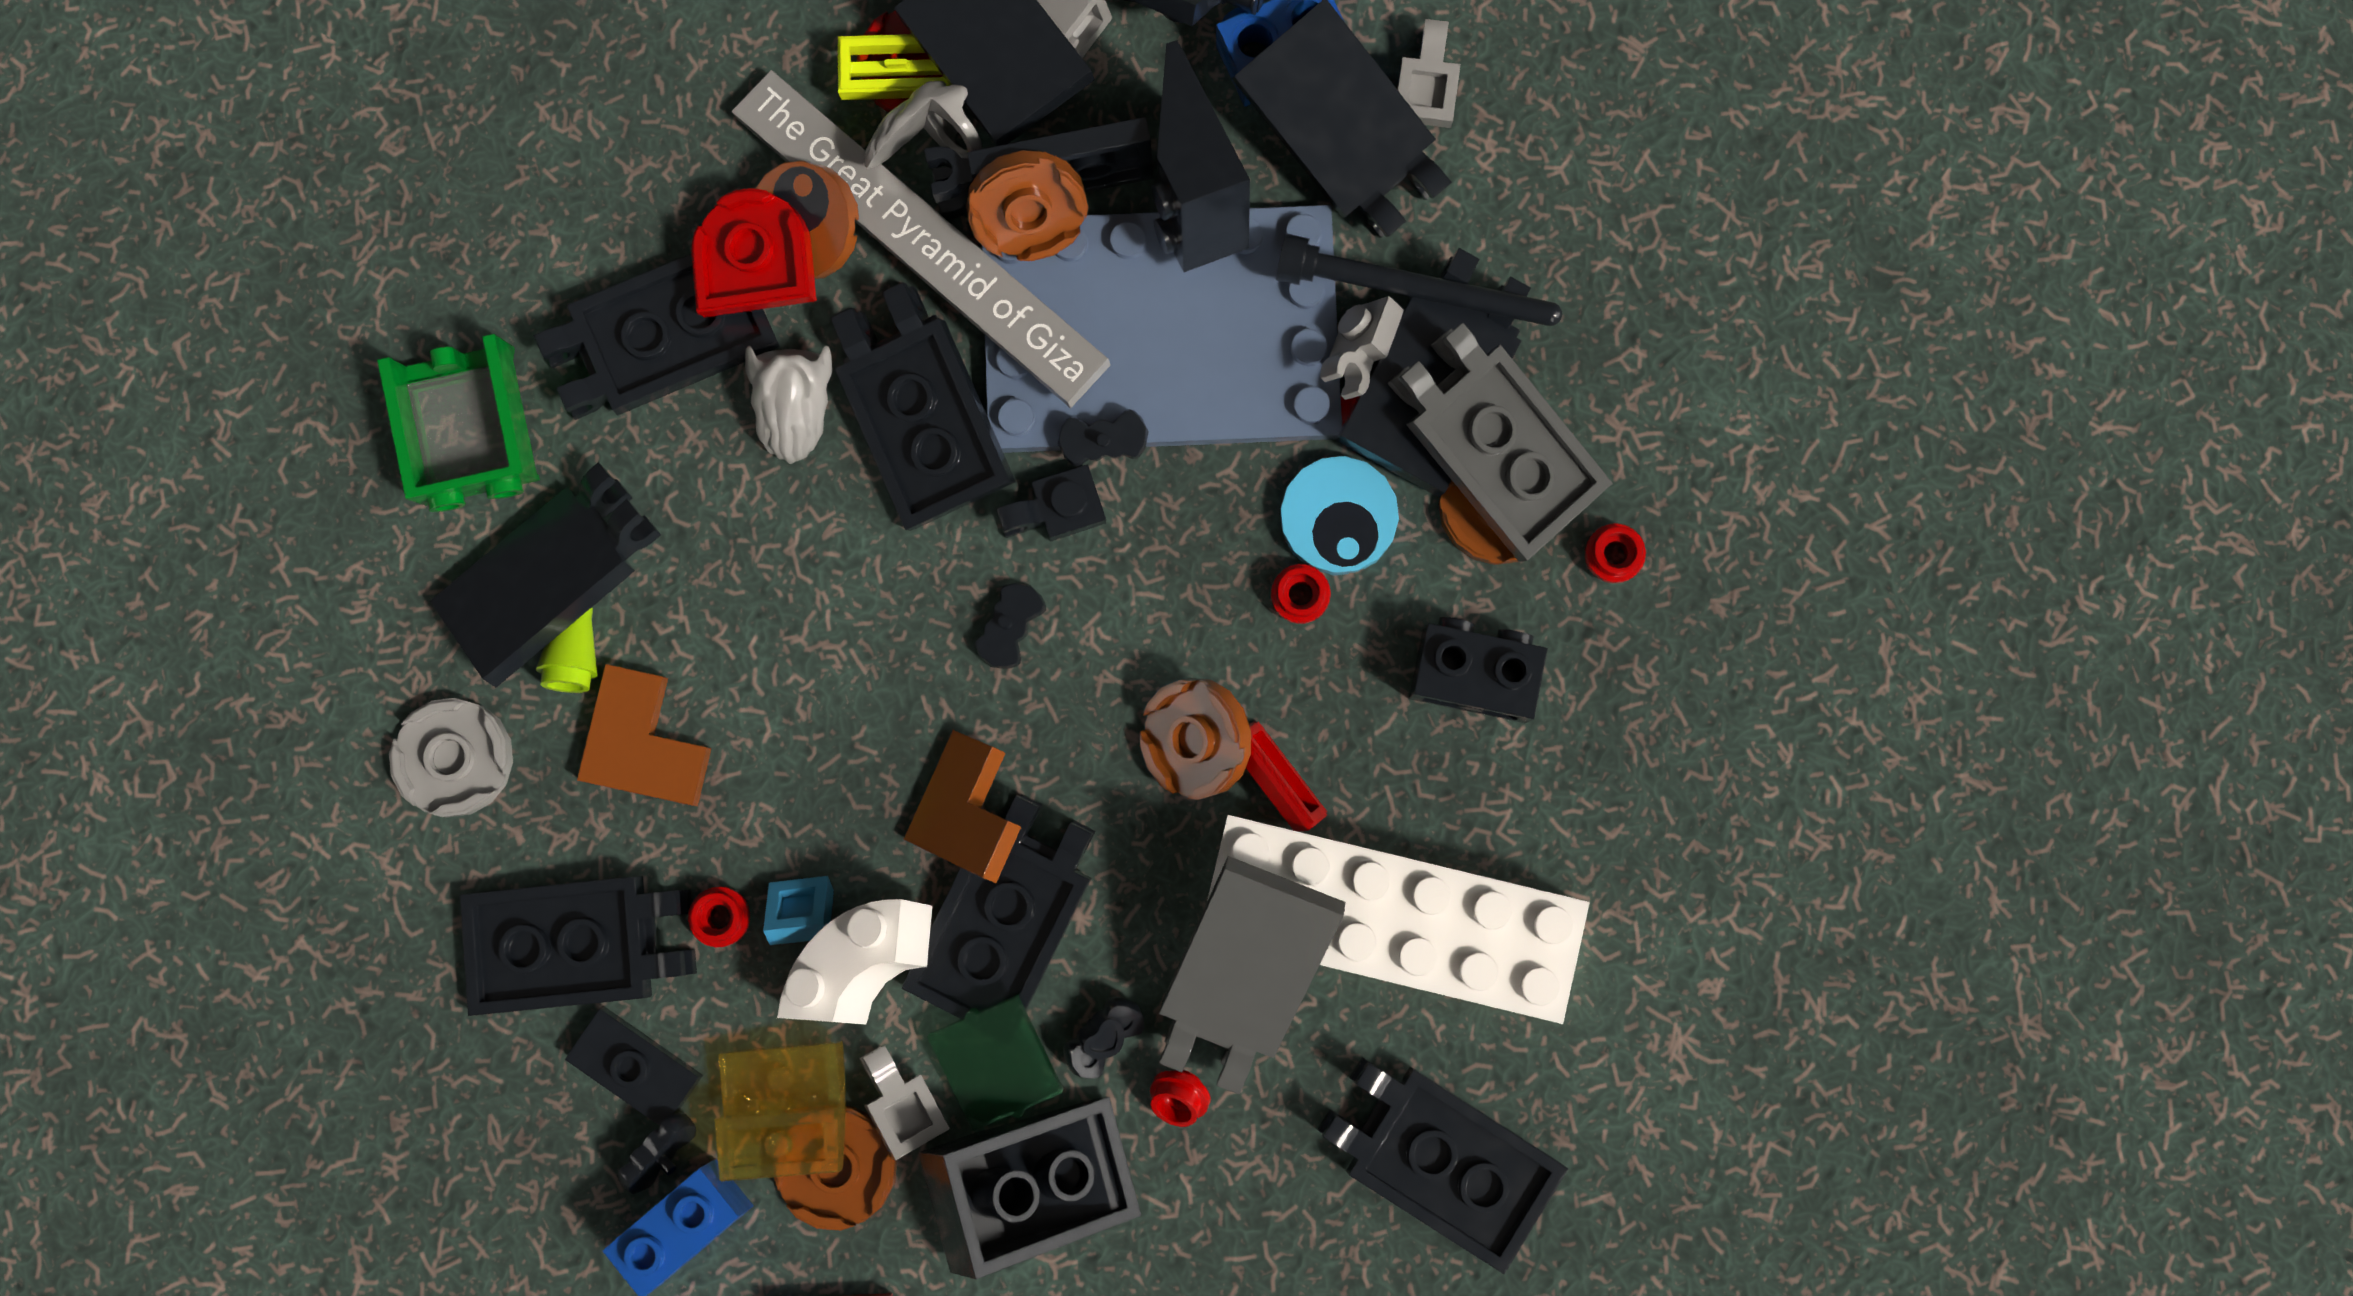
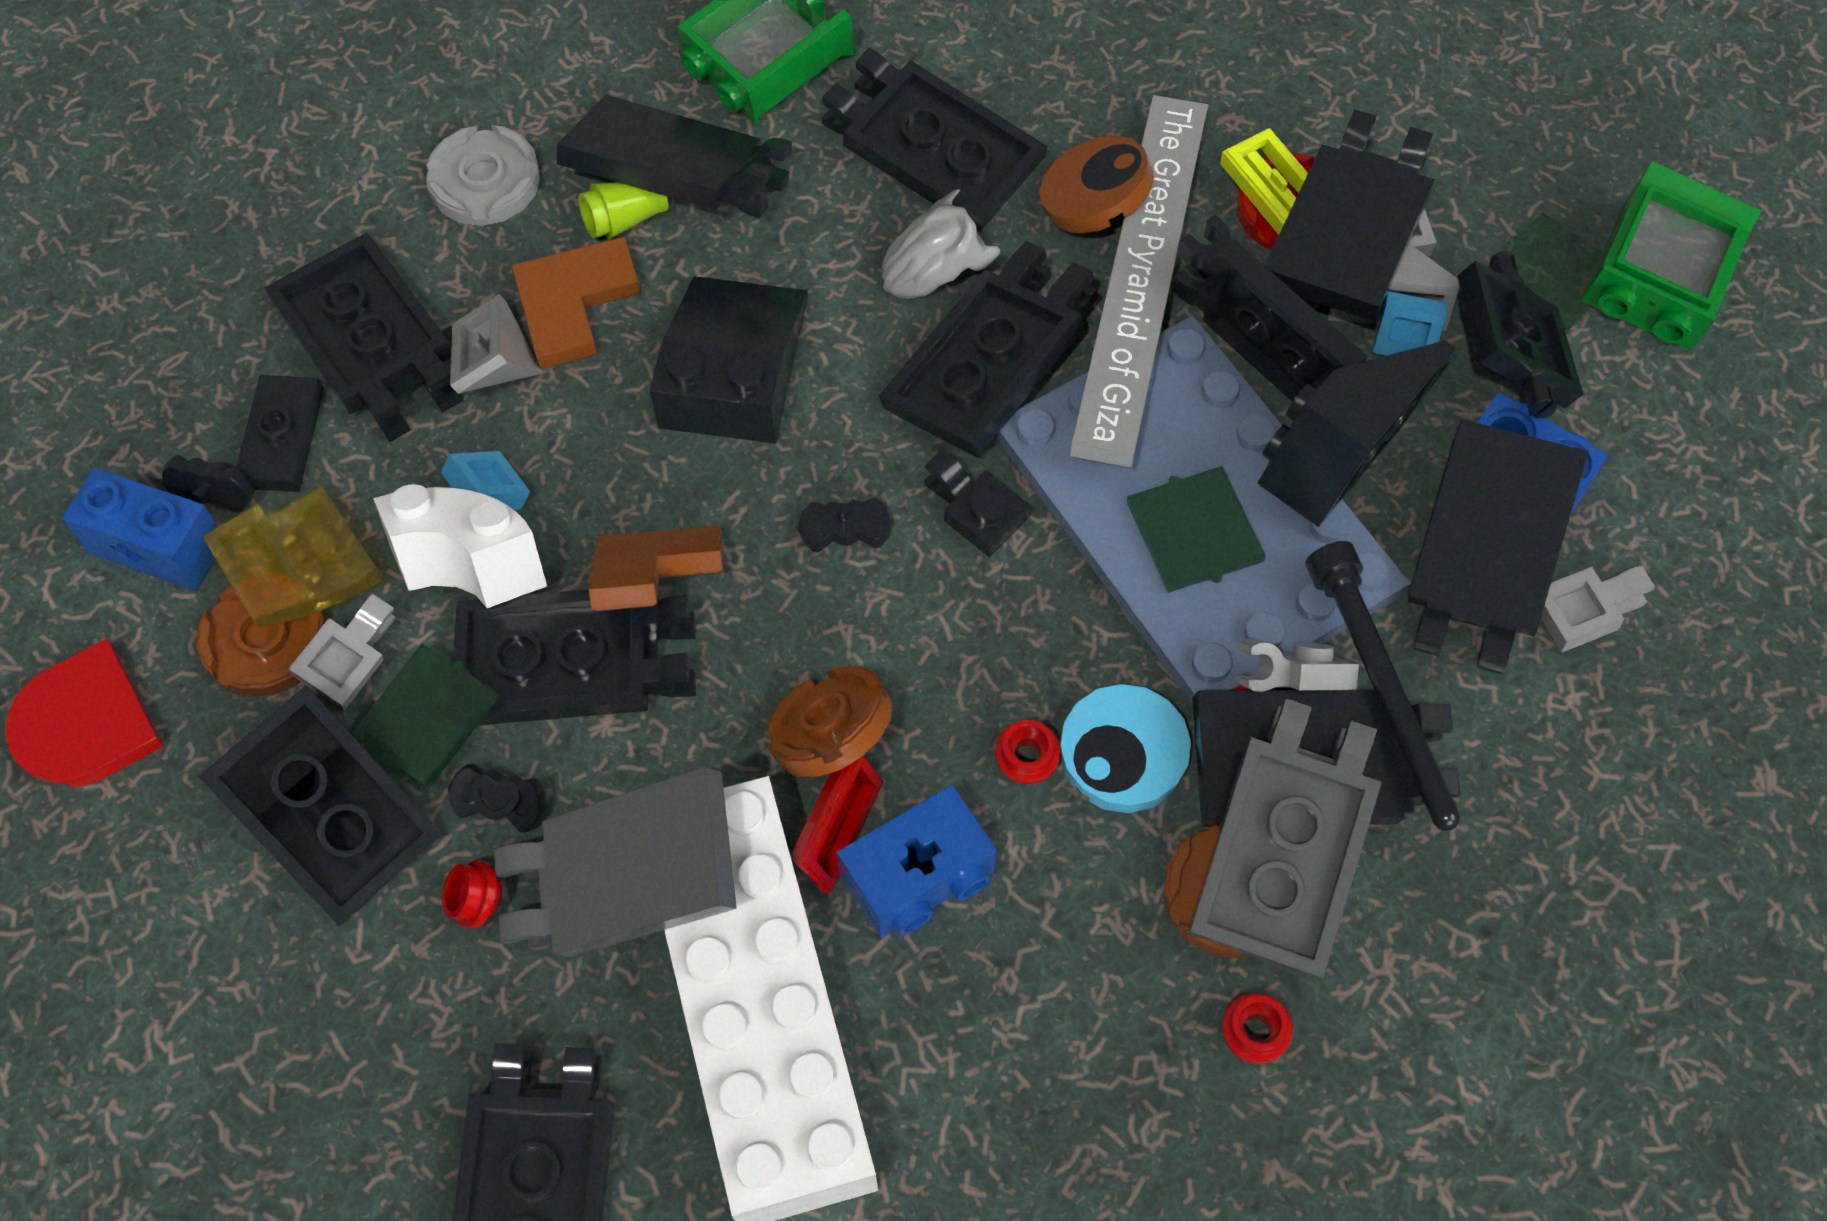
camera: 55 degrees right, 20 degrees down
(657, 844) = (489, 348): none -> light grey slope
(700, 917) = (444, 414): red plate -> none
(751, 255) = (1039, 158): red tile -> none
(786, 633) = (728, 359): none -> black slope
(929, 107) = (1241, 209): light grey piece -> none
(1026, 205) = (1223, 317): dark orange tile -> none
(1086, 442) = (1061, 503): black piece -> none
(1106, 47) = (1408, 323): none -> dark azure plate
(1187, 344) = (1195, 529): none -> clear green piece
(1335, 700) = (934, 833): none -> blue brick
(1478, 670) = (1052, 951): black brick -> none

